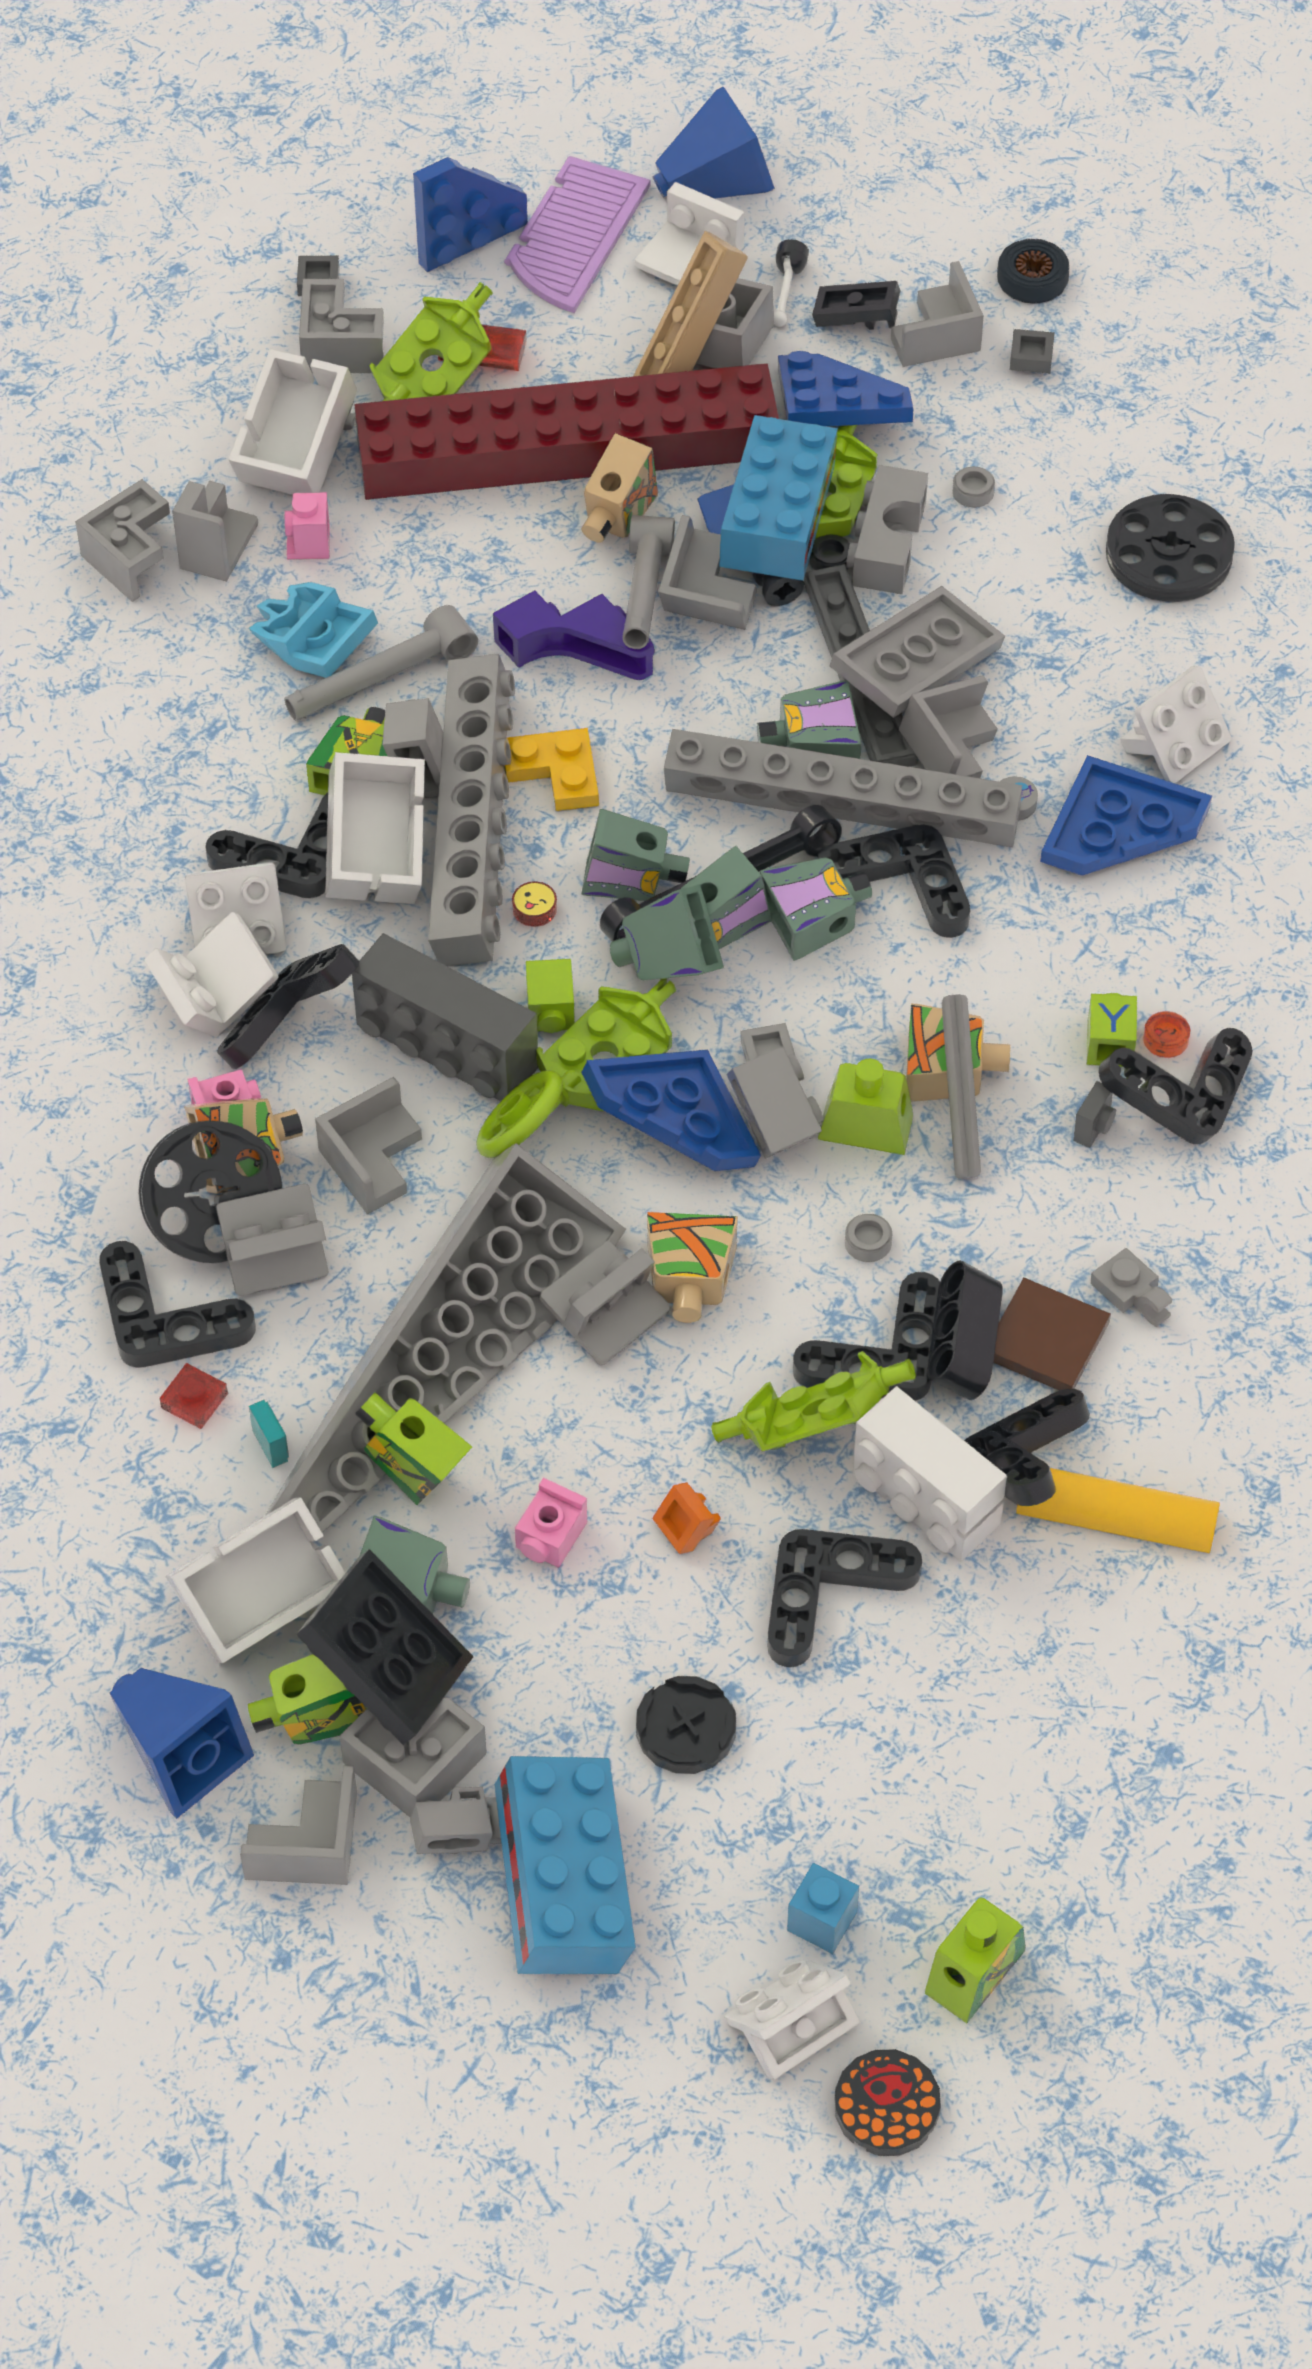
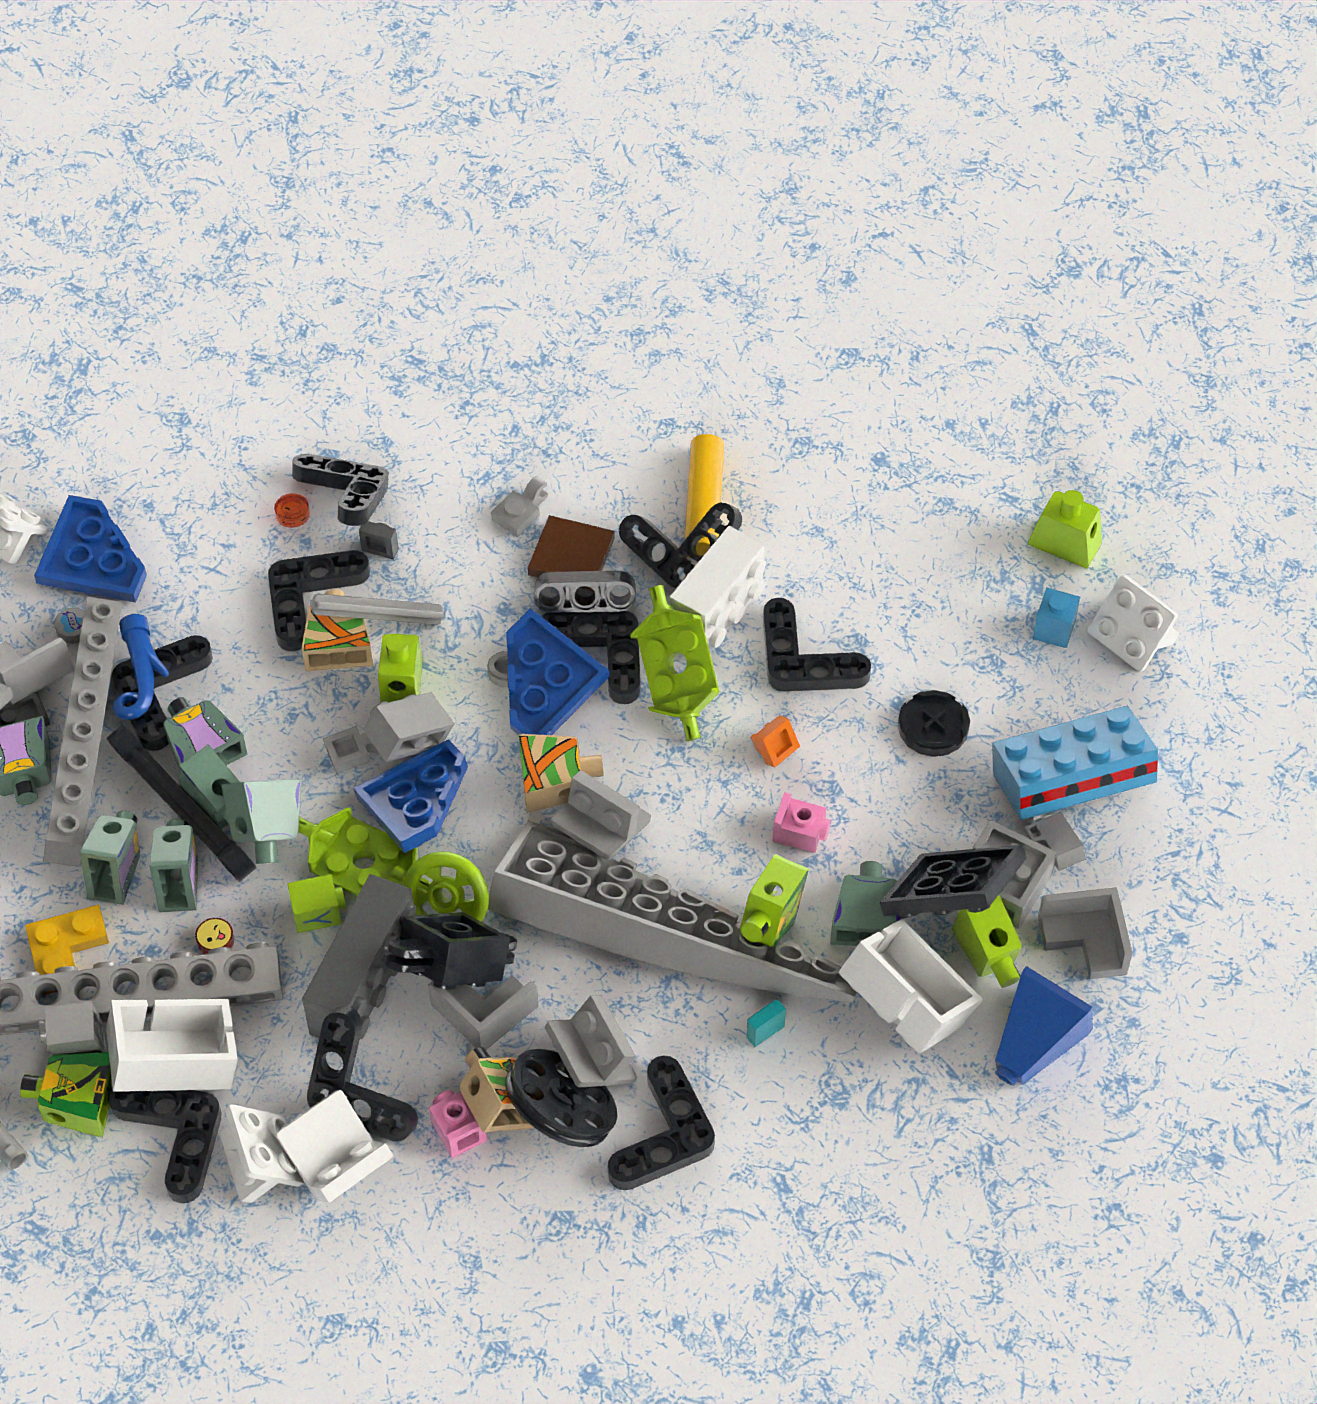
camera: 100 degrees left, 0 degrees up
(193, 1395) = (736, 1090): clear red plate -> none
(446, 1092) = (451, 950): none -> black brick
(658, 795) = (112, 842): none -> sand green torso
(832, 1269) = (547, 676): none -> blue plate
(887, 2102) = (1173, 574): tile -> none
(924, 848) = (136, 634): none -> blue plant
(1037, 1024) = (295, 587): none -> black beam
(1110, 1025) = (297, 535): lime brick -> none

